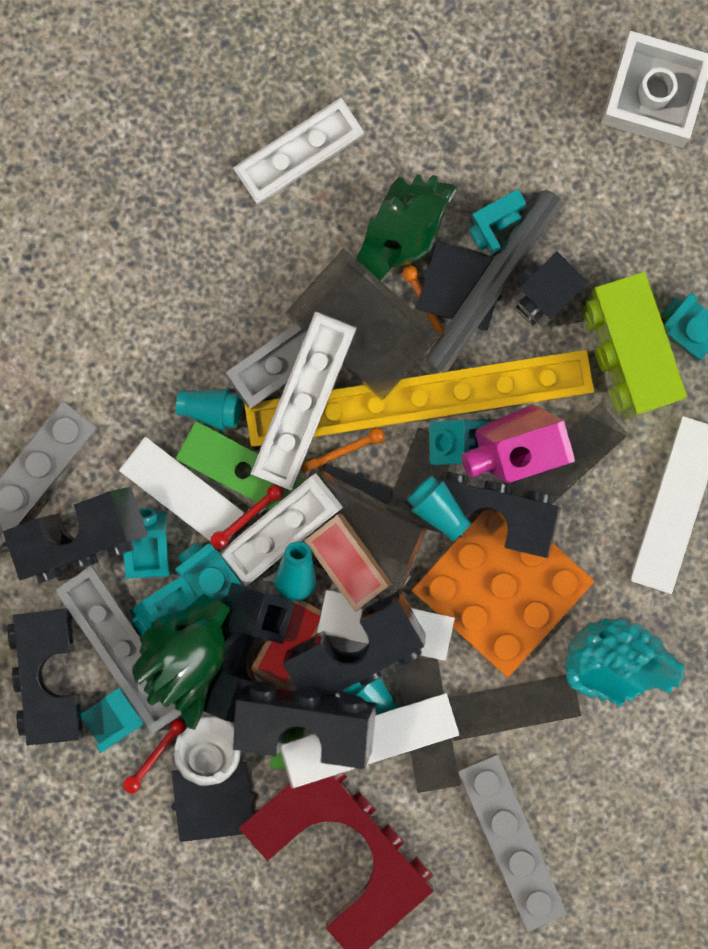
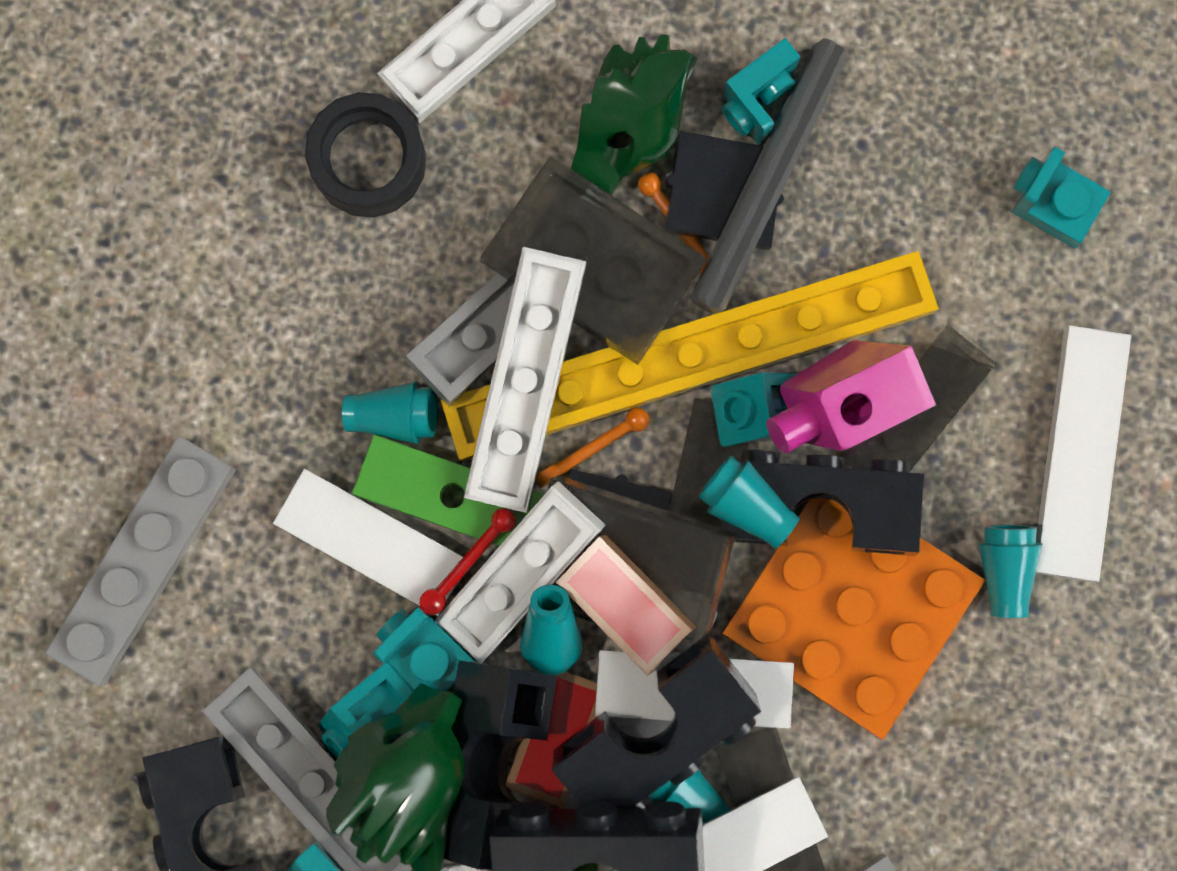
camera: 15 degrees left, 5 degrees down
(105, 524) = (259, 603): black arch -> none
(150, 552) = (325, 624): teal bracket -> none
(214, 192) = (356, 109): none -> black tyre
(514, 706) = (900, 780): clear smoke tile -> none
(547, 289) = (851, 169): black brick -> none
(612, 574) = (1010, 567): none -> teal cone
(620, 662) = (1045, 691): teal piece -> none
(633, 346) = (987, 232): lime brick -> none

